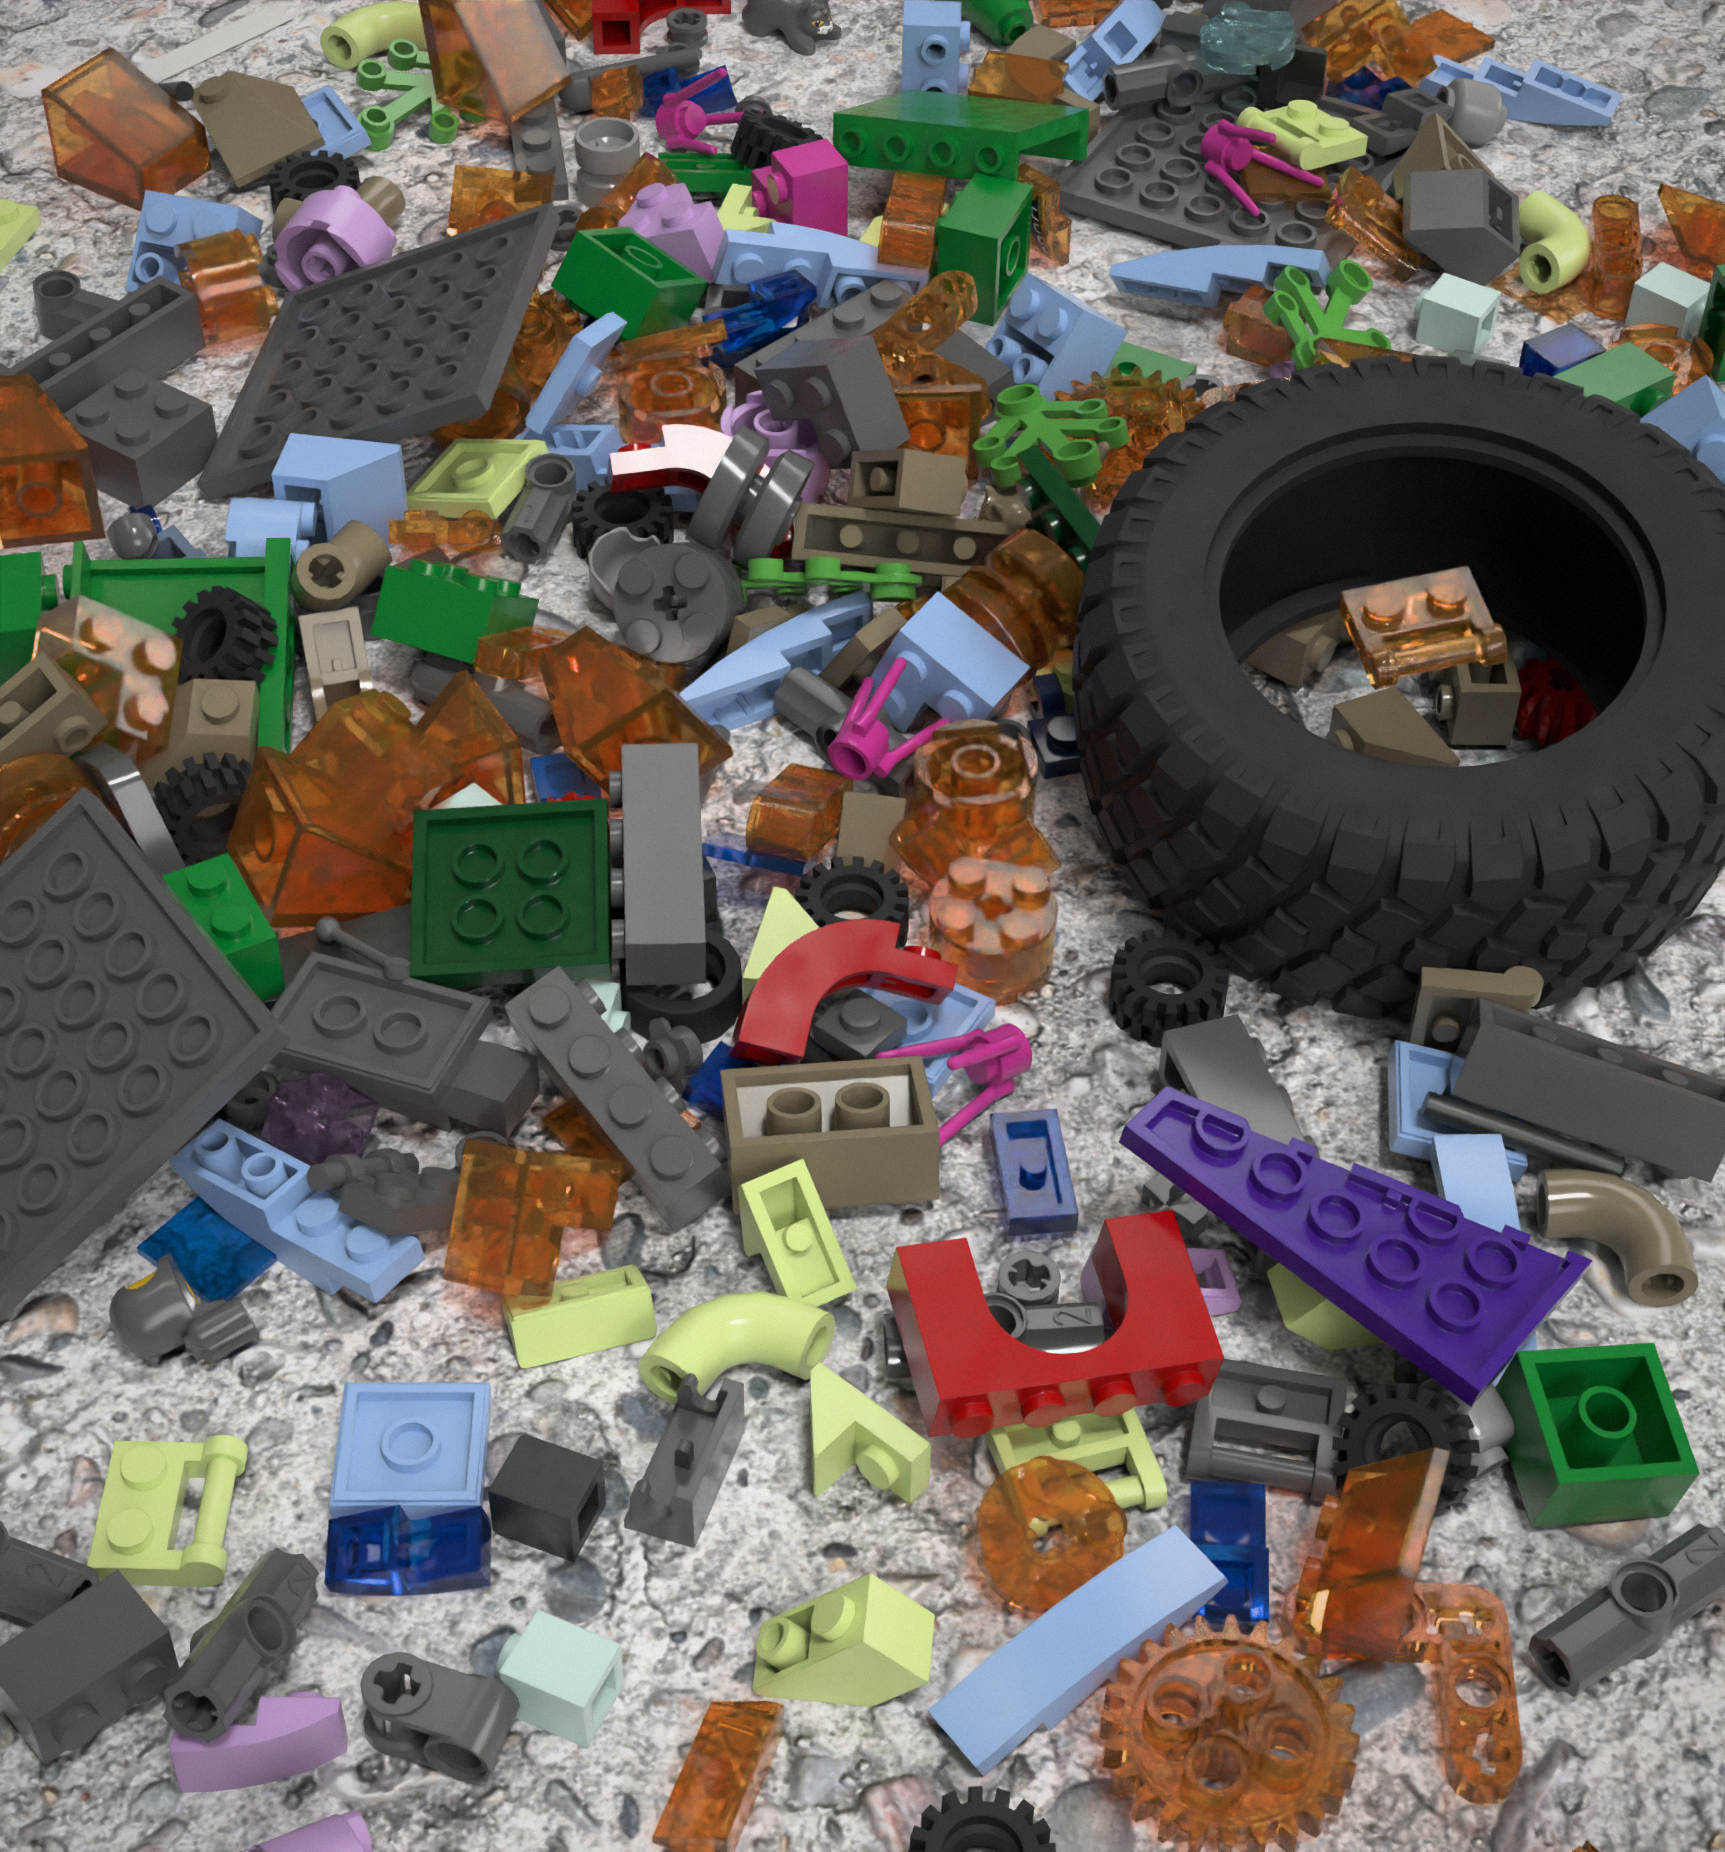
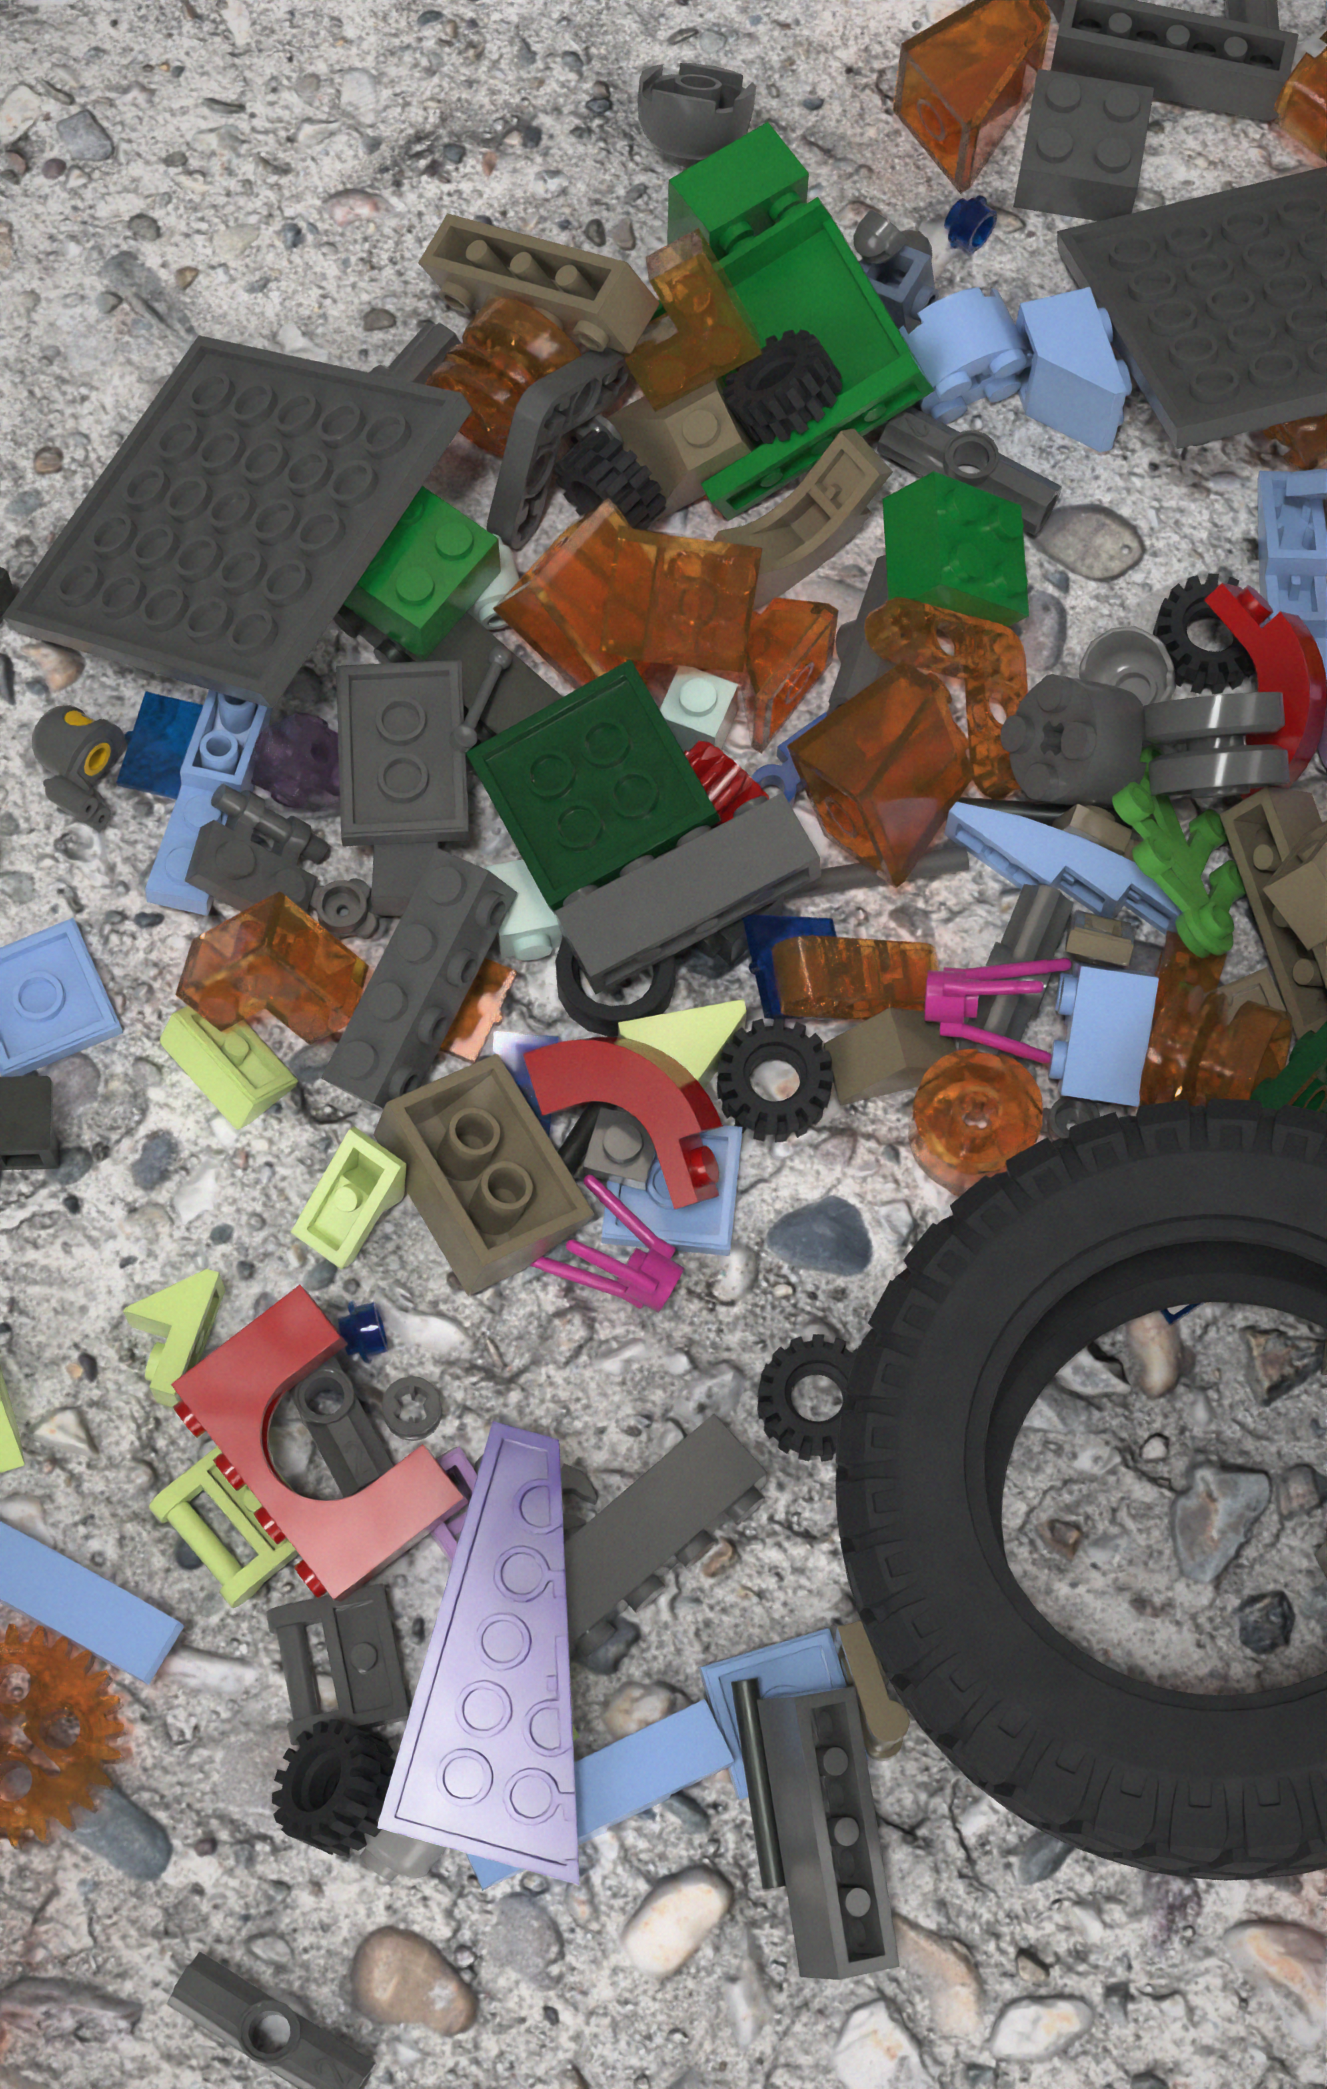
camera: 65 degrees right, 25 degrees up
(249, 1105) = (307, 696): dark grey plate -> none
(338, 570) = (925, 429): dark tan cylinder -> none
(428, 530) = (1080, 487): clear orange plate -> none
(475, 476) = (1200, 481): yellowish green plate -> none
(541, 508) = (1179, 553): dark grey piece -> none
(672, 1053) = (526, 1003): dark grey plate -> none
(688, 1464) = (104, 1215): dark grey hinge -> none
(736, 1332) = (248, 1192): yellowish green cylinder -> none
(931, 842) = (882, 1157): clear orange cylinder -> none
(995, 926) = (804, 1176): clear orange brick -> none
(1033, 1172) = (535, 1362): clear blue plate -> none
(1046, 1490) = (105, 1533): clear orange plate -> none
(1230, 1530) = (204, 1677): clear blue slope -> none
(1372, 1553) = (196, 1792): clear orange slope -> none
(1388, 729) = (1257, 1490): dark tan slope -> none
(1416, 614) = (1155, 1449): clear orange plate -> none
(1456, 1658) = (173, 1895): clear orange beam -> none
(1595, 1434) = (427, 1945): green brick -> none
(1626, 1219) = (708, 1908): dark tan cylinder -> none

